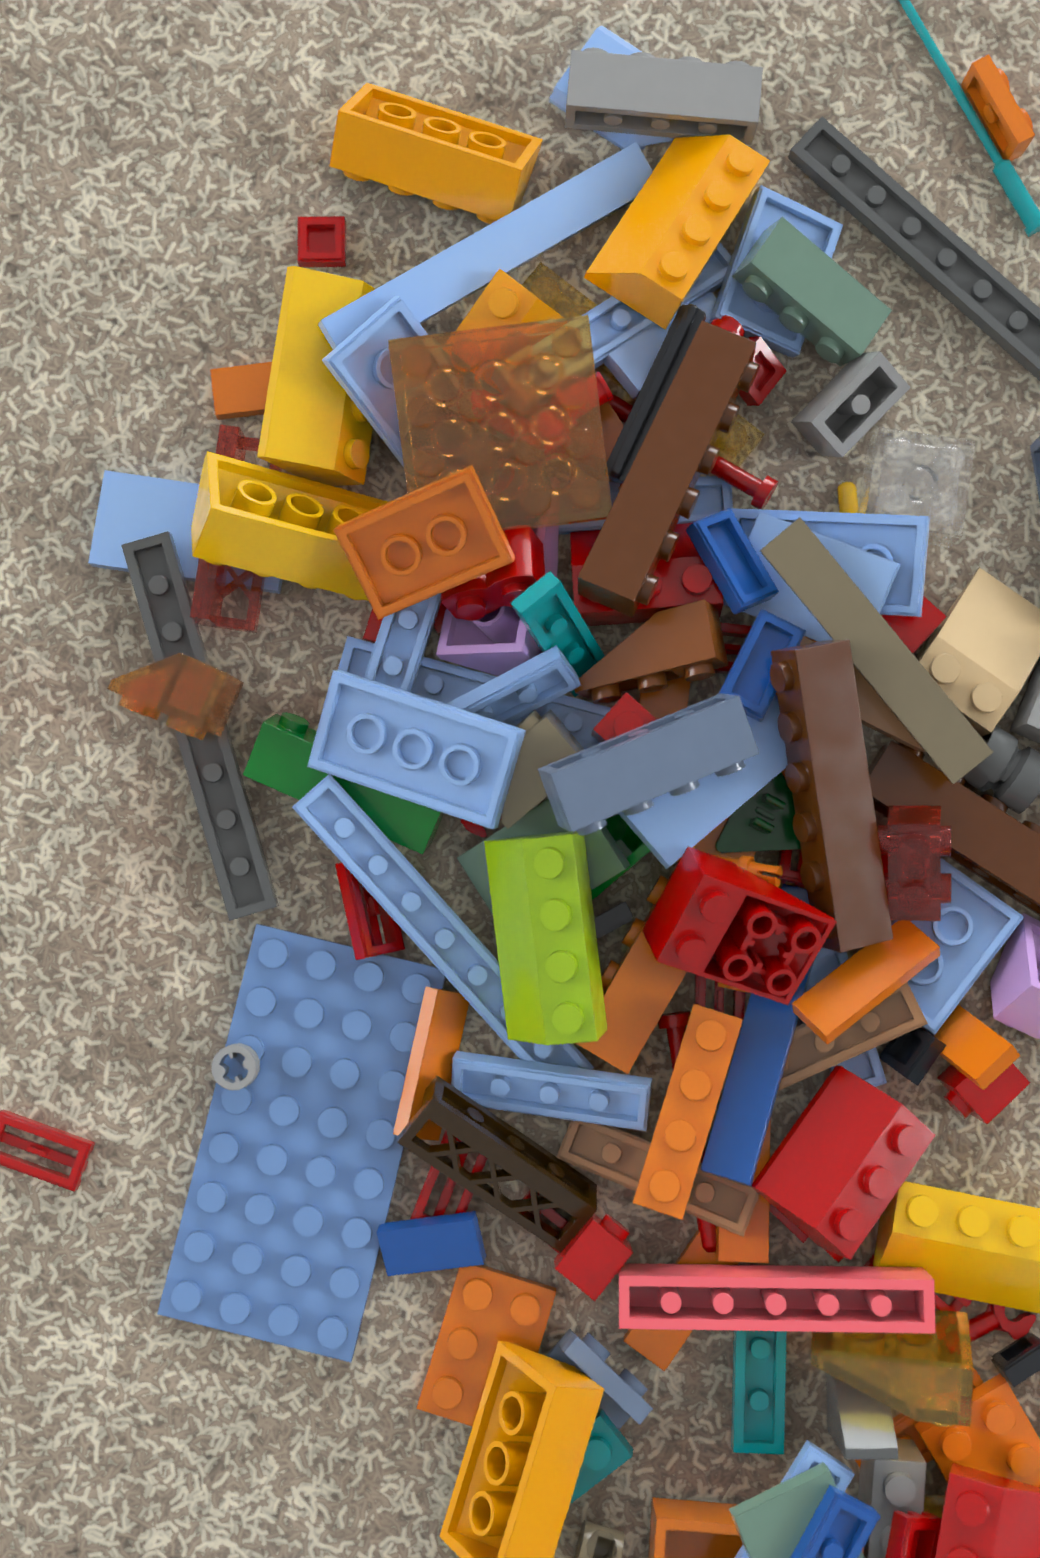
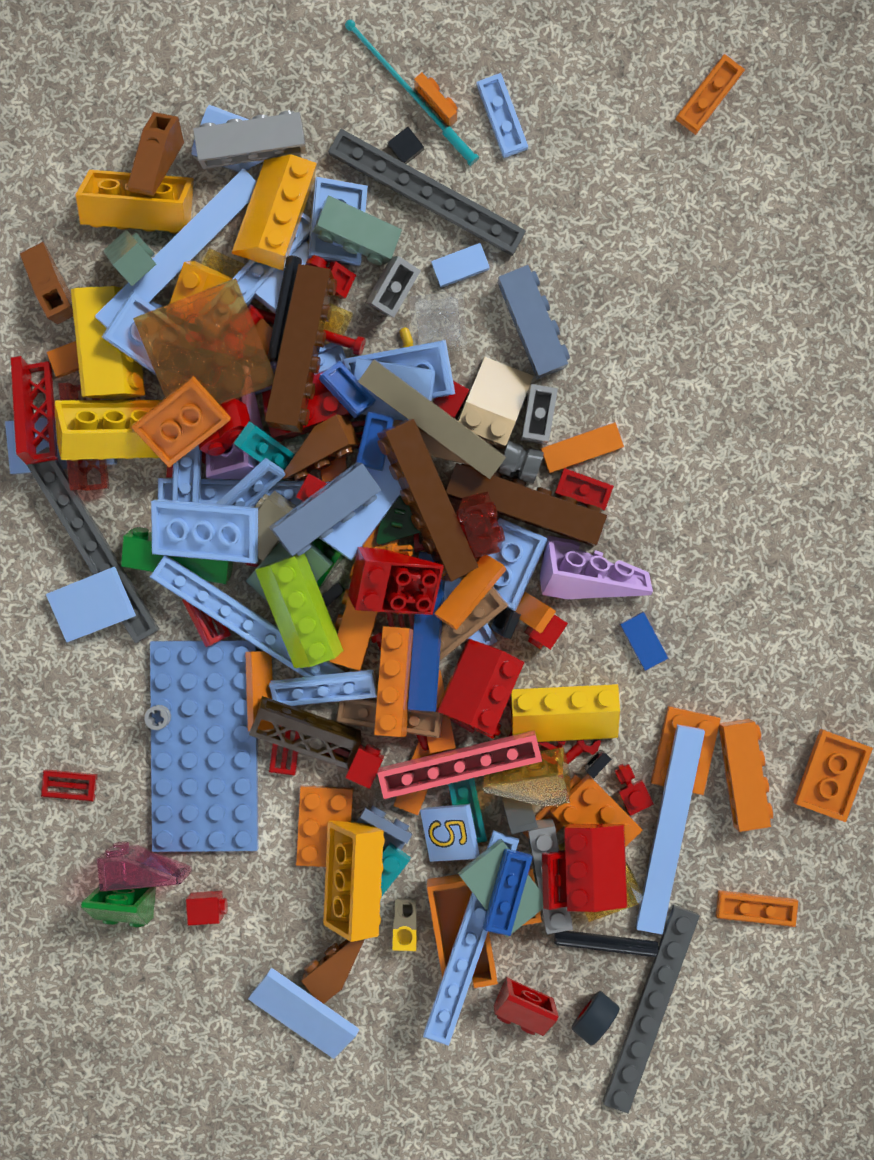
camera: 20 degrees left, 5 degrees up
(77, 1400) = (123, 905): none -> green slope
(126, 1341) = (138, 867): none -> clear pink slope
(146, 456) = (24, 411): none -> red fence
(169, 830) = (90, 604): none -> light blue tile
(185, 689) = (76, 530): clear orange slope -> none
(229, 1447) = (206, 908): none -> red brick
(246, 254) = (48, 283): none -> dark orange slope
(322, 241) = (88, 265): red tile -> none
(407, 238) = (130, 256): none -> sand green brick
(431, 1243) = (282, 781): blue tile -> none
(494, 77) = (156, 152): none -> dark orange slope
(719, 1422) = (450, 833): none -> light blue tile
(925, 173) = (405, 145): none -> black tile
(973, 399) = (460, 265): none -> light blue tile

